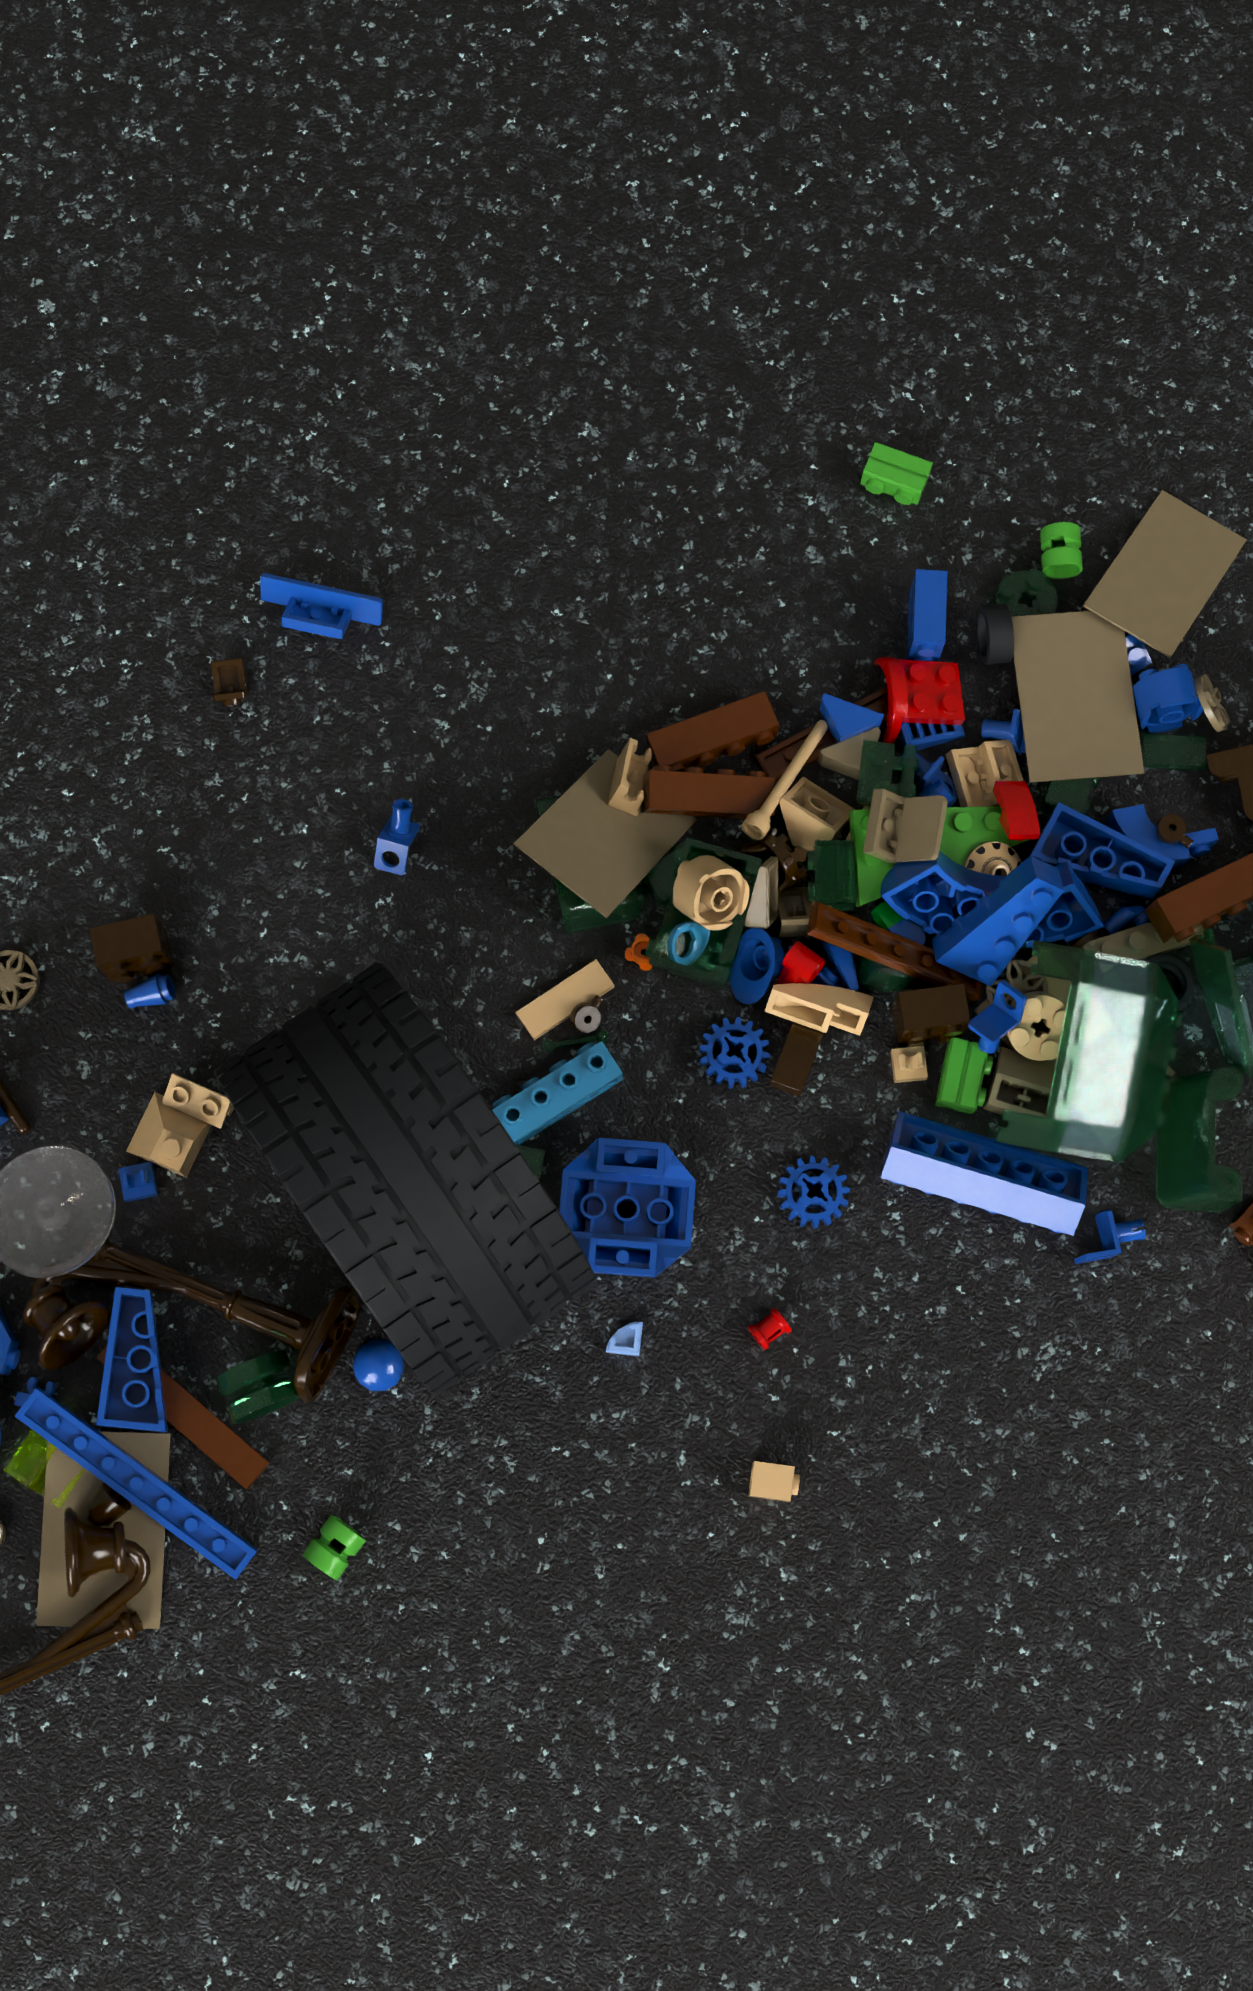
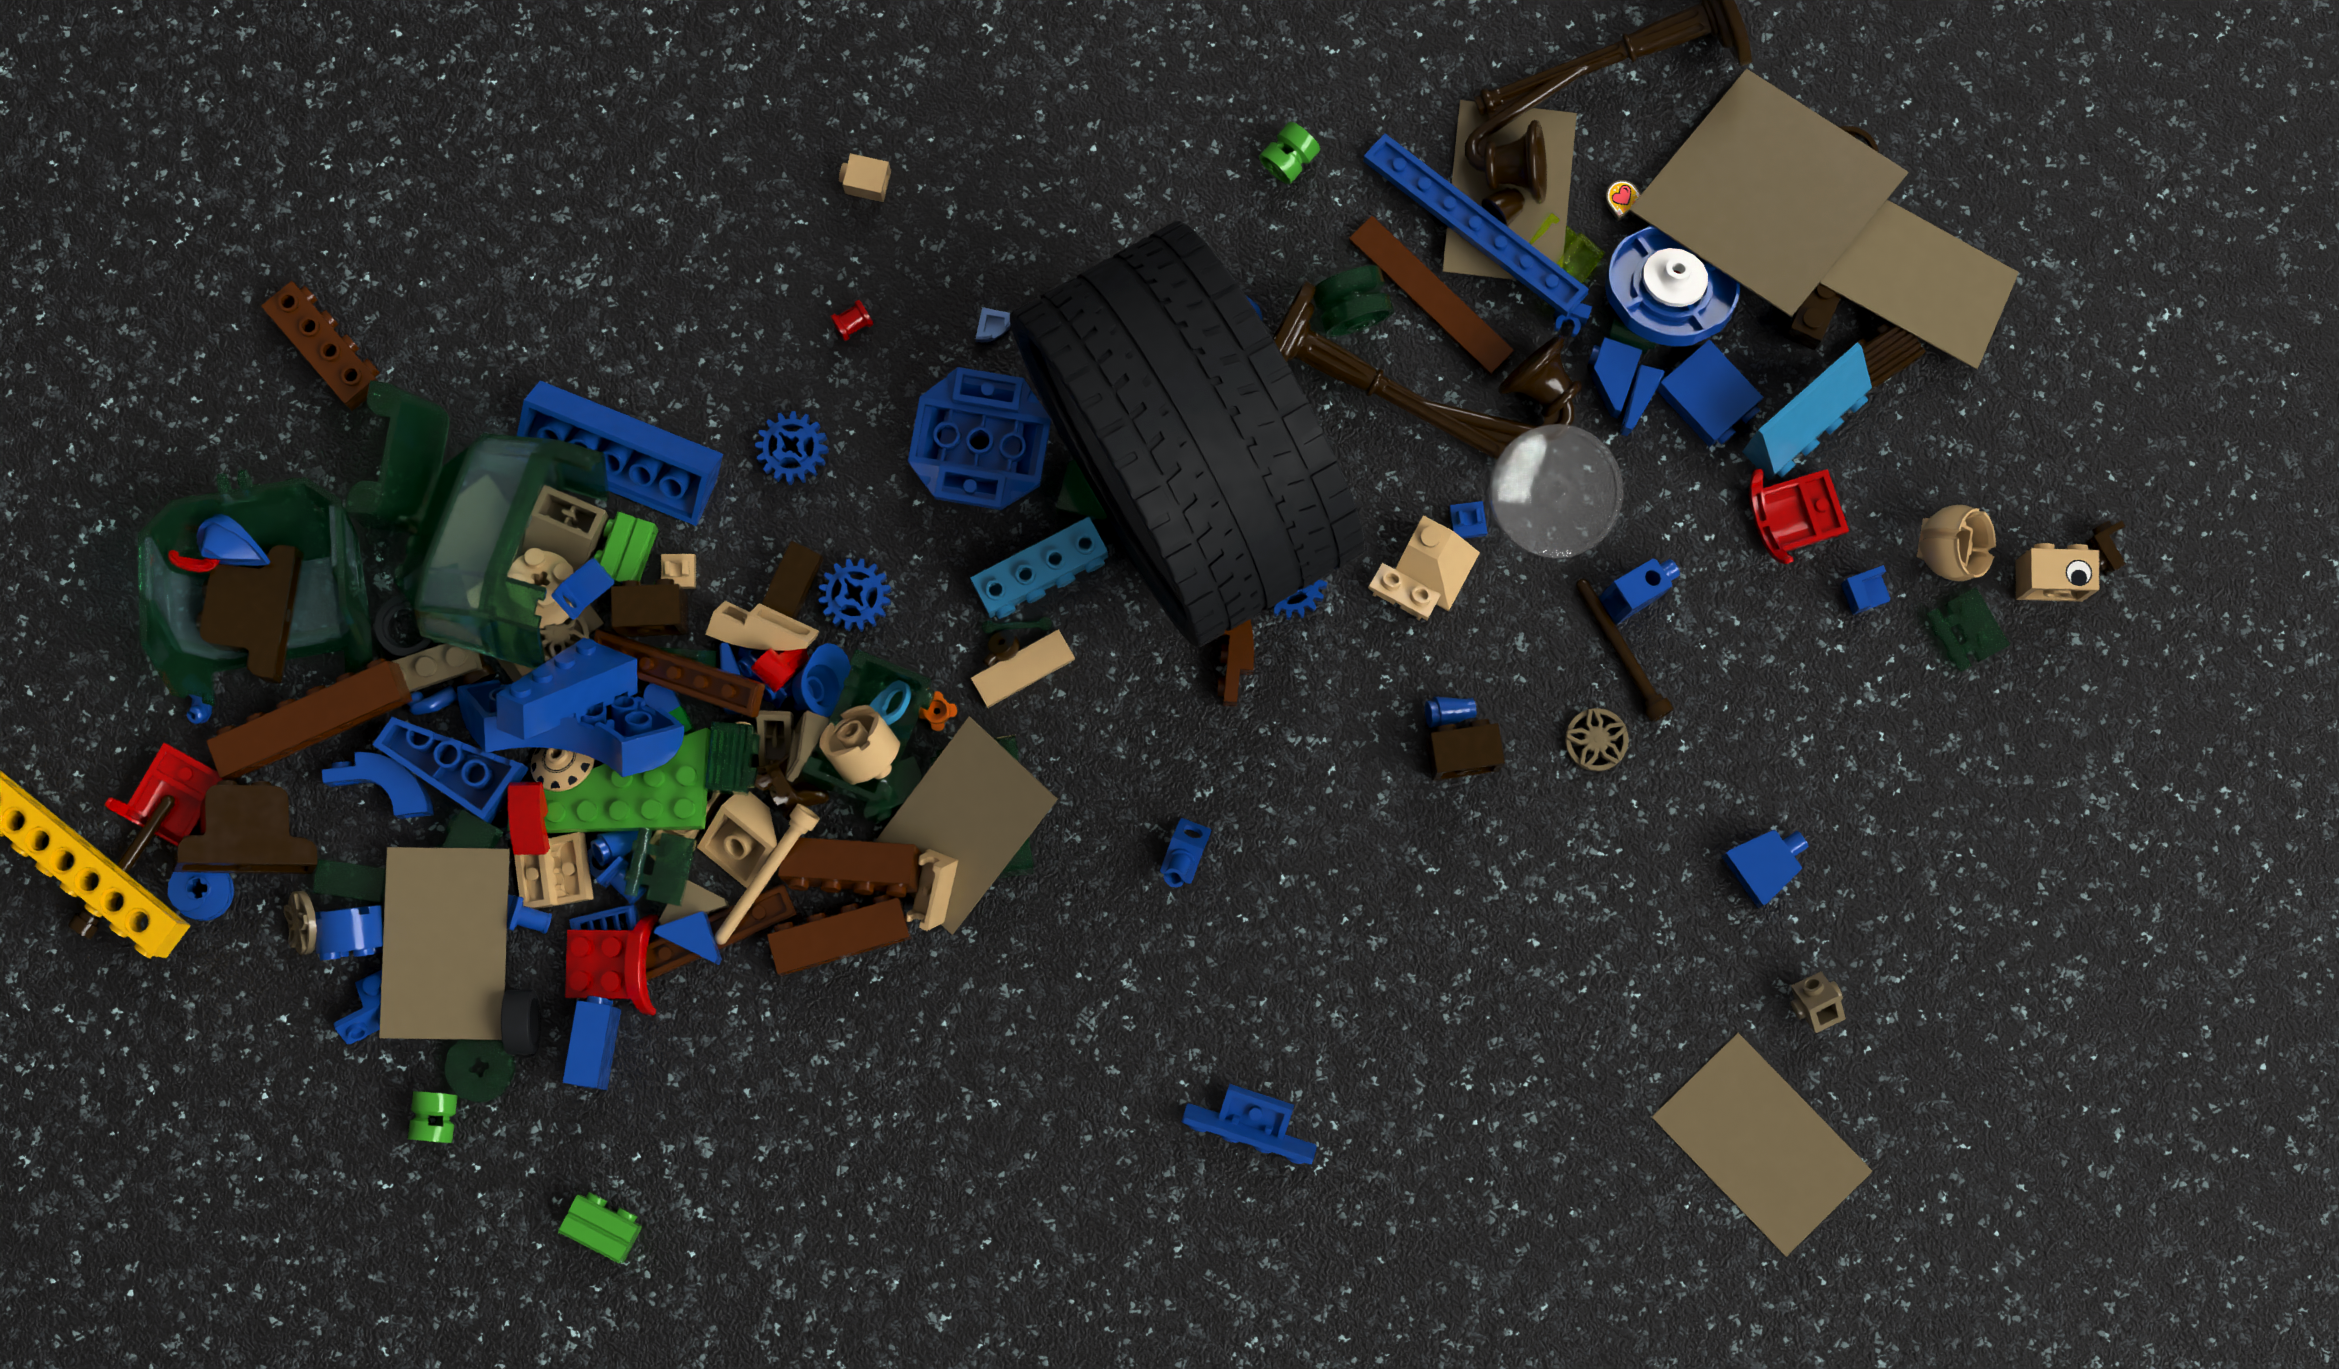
camera: 175 degrees left, 5 degrees up
(132, 1369) = (1475, 322): blue wedge -> none
(229, 681) = (1353, 1045): dark brown bracket -> none
(905, 827) = (648, 792): dark tan bracket -> none
(1112, 1235) = (502, 379): blue bracket -> none
(1165, 573) = (322, 1080): dark tan piece -> none
(1178, 833) = (362, 777): dark brown piece -> none

